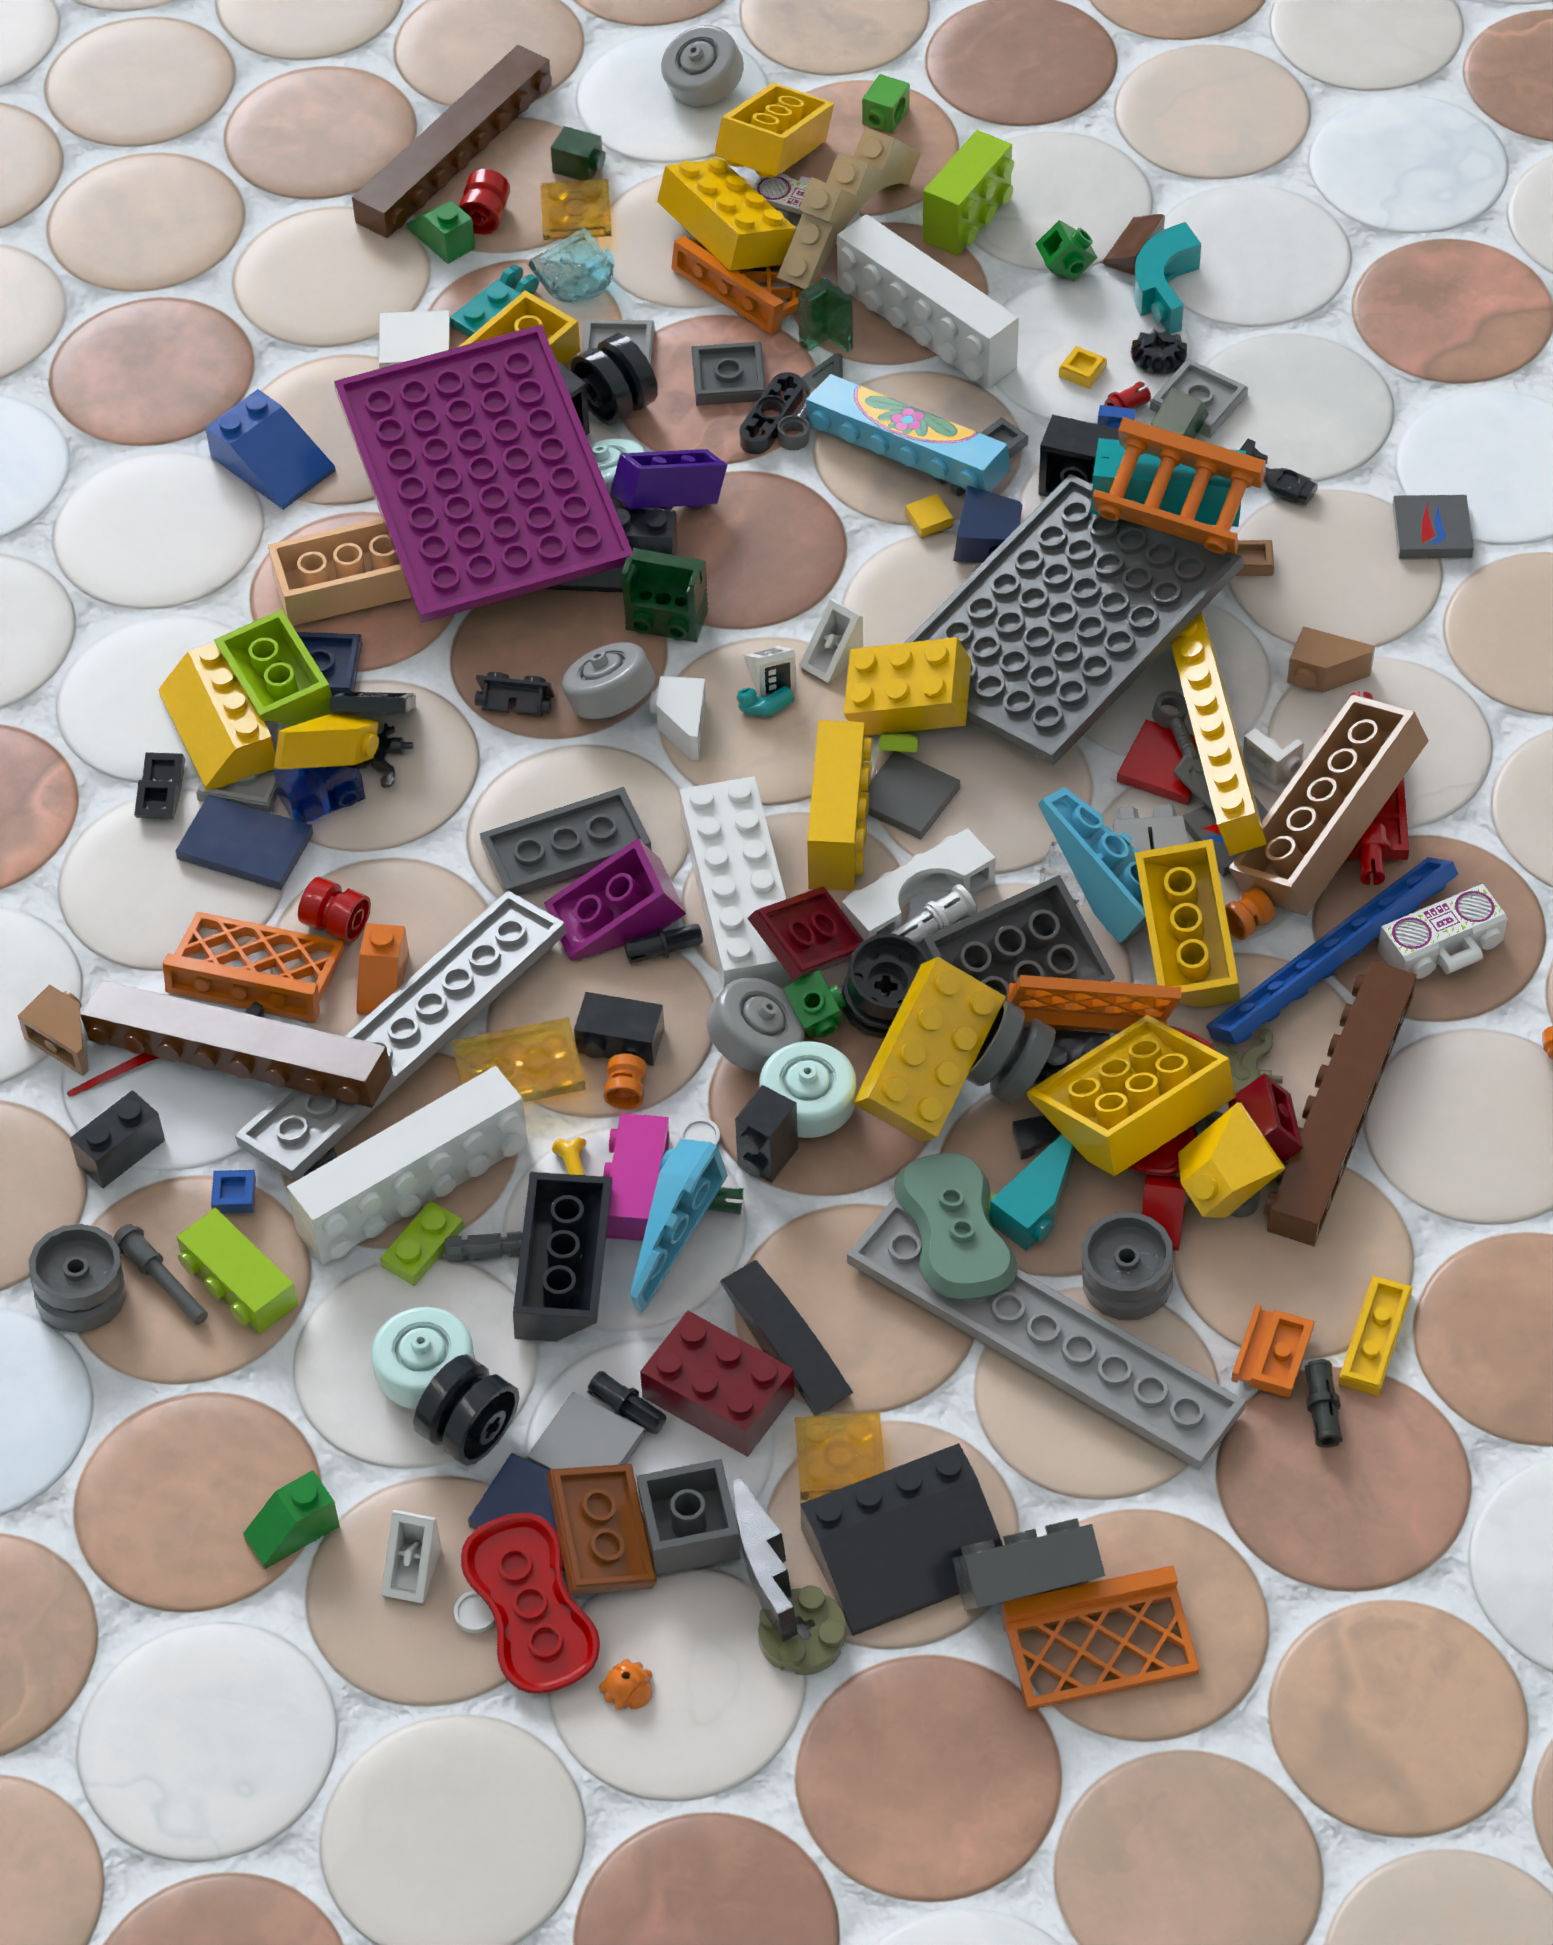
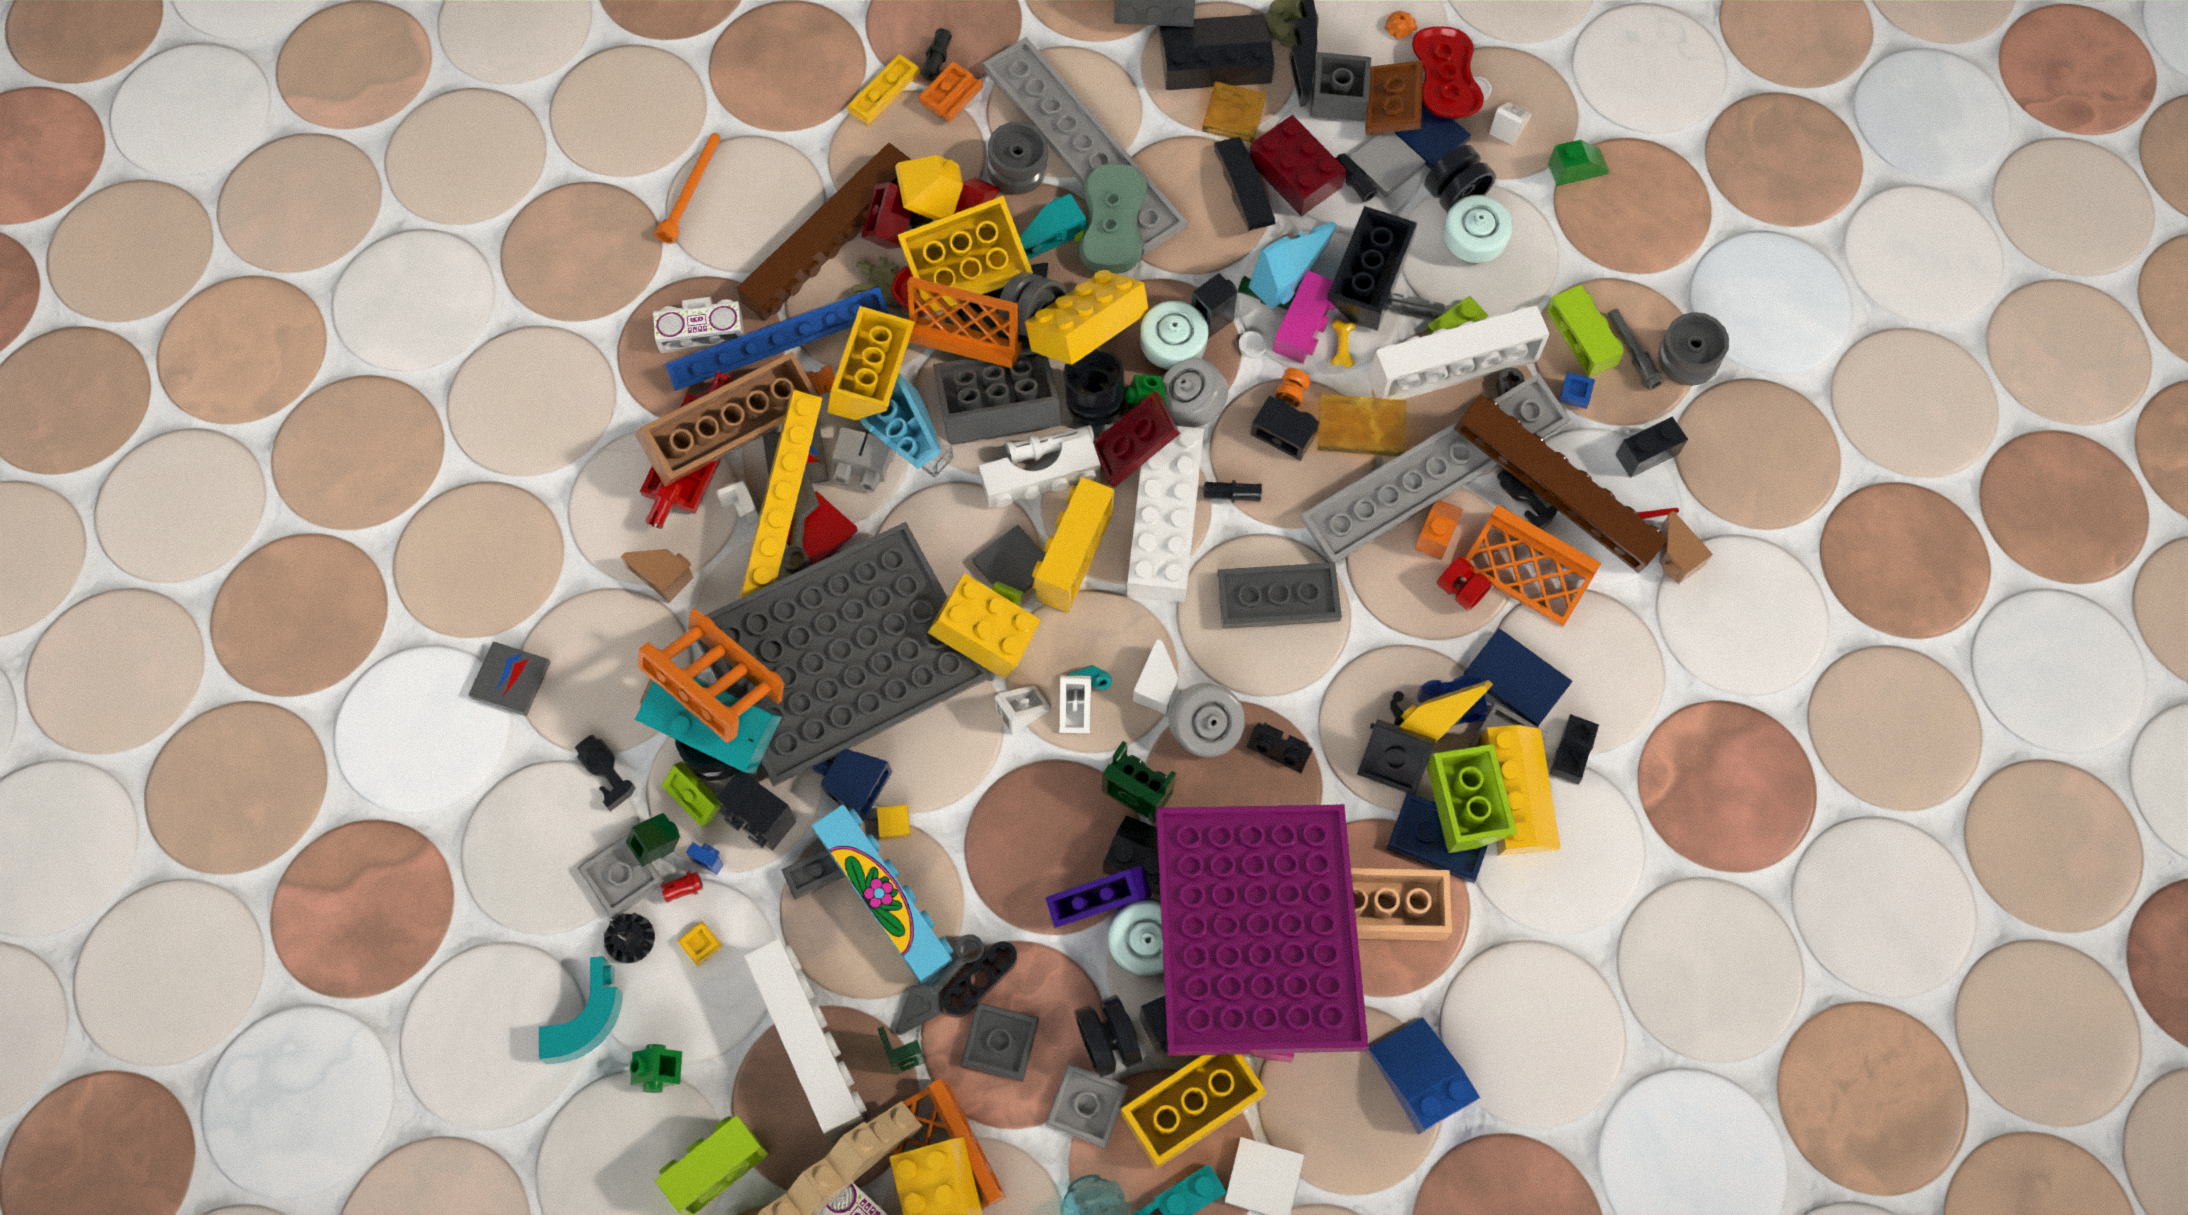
camera: 165 degrees left, 15 degrees up
(616, 902) = (1257, 527): magenta slope -> none
(1136, 234) = (587, 1075): reddish brown slope -> none

